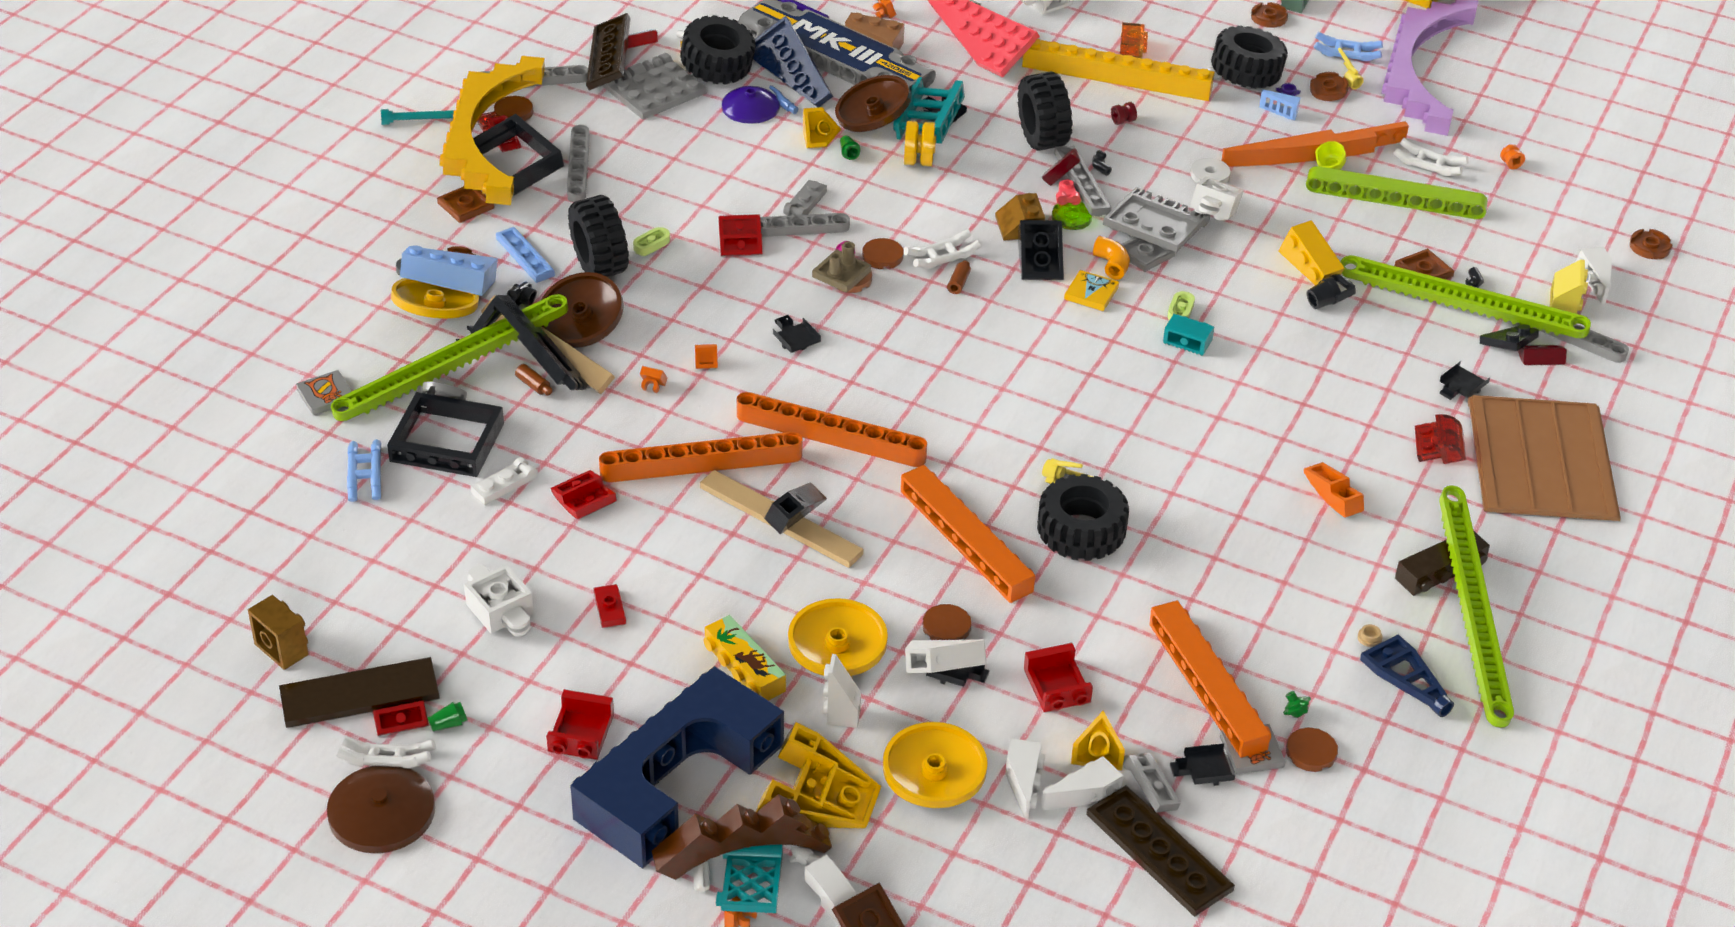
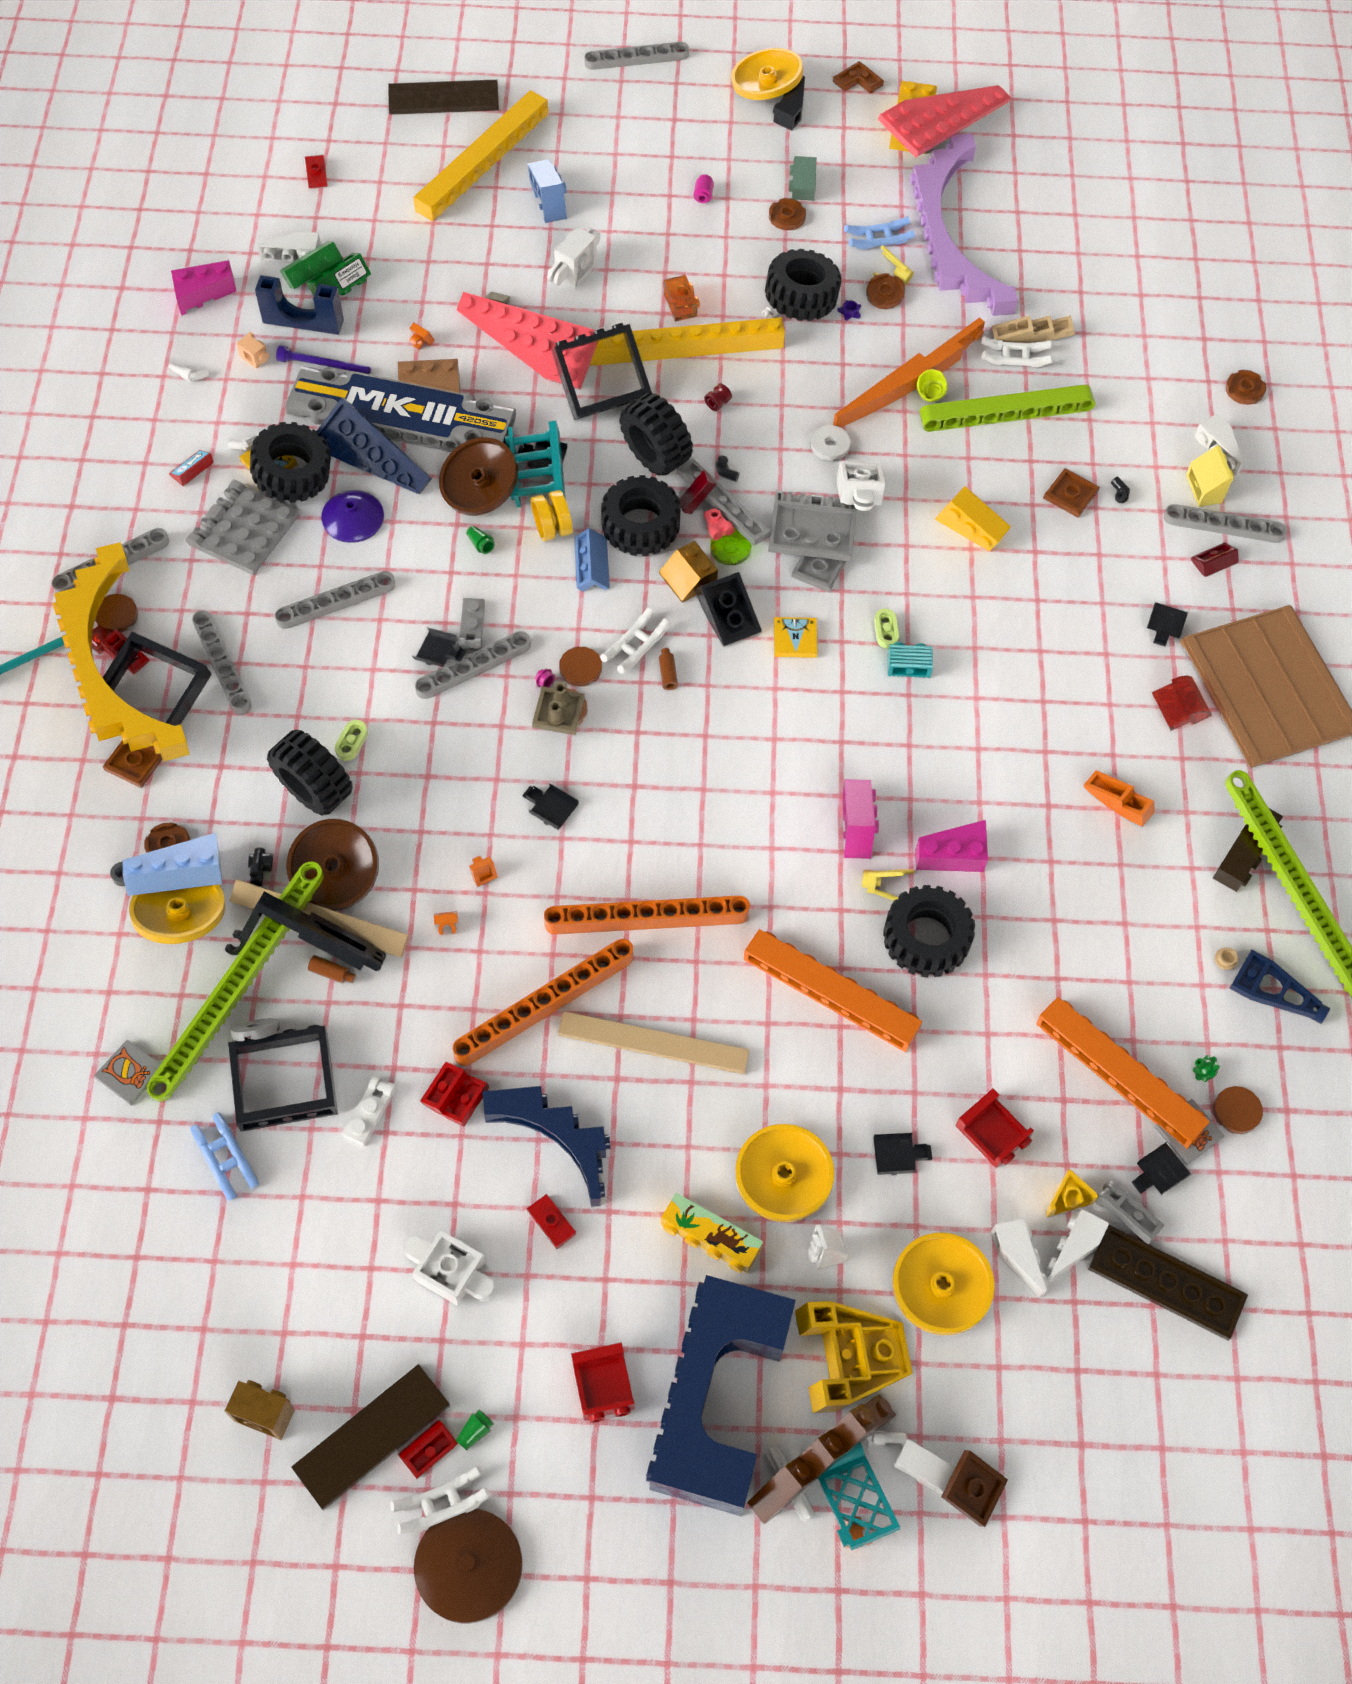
camera: 25 degrees left, 20 degrees up
(525, 254) = (232, 806): light blue tile -> none
(608, 51) = (176, 501): dark brown tile -> none
(643, 525) = (530, 1109): none -> dark blue arch
(699, 153) = (336, 602): none -> light grey beam
(740, 235) = (435, 699): red slope -> none
(768, 203) = (439, 647): none -> black piece
(784, 102) = (384, 501): medium blue animal -> none
(793, 507) = (669, 1032): black slope -> none
(818, 127) = (439, 528): yellow slope -> none
(939, 187) = (591, 560): none -> medium blue panel
(944, 655) = (886, 1155): white slope -> none
(946, 622) = (865, 1105): dark orange tile -> none
(999, 166) = (640, 494): none -> black tyre
(1009, 91) = (581, 340): none -> black window
(1066, 424) = (859, 818): none -> dark pink wedge
(1116, 255) = (800, 586): light orange cylinder -> none
(1145, 472) = (954, 849): none -> dark pink wedge
(1287, 100) = (859, 332): light blue slope -> none
(1328, 291) = (1008, 559): black piece -> none
(1450, 145) = (1038, 330): none -> tan slope
(1466, 297) = (1127, 520): lime gear -> none
(1510, 338) = (1183, 552): black wing -> none
(1512, 156) = (1086, 324): orange wheel -> none

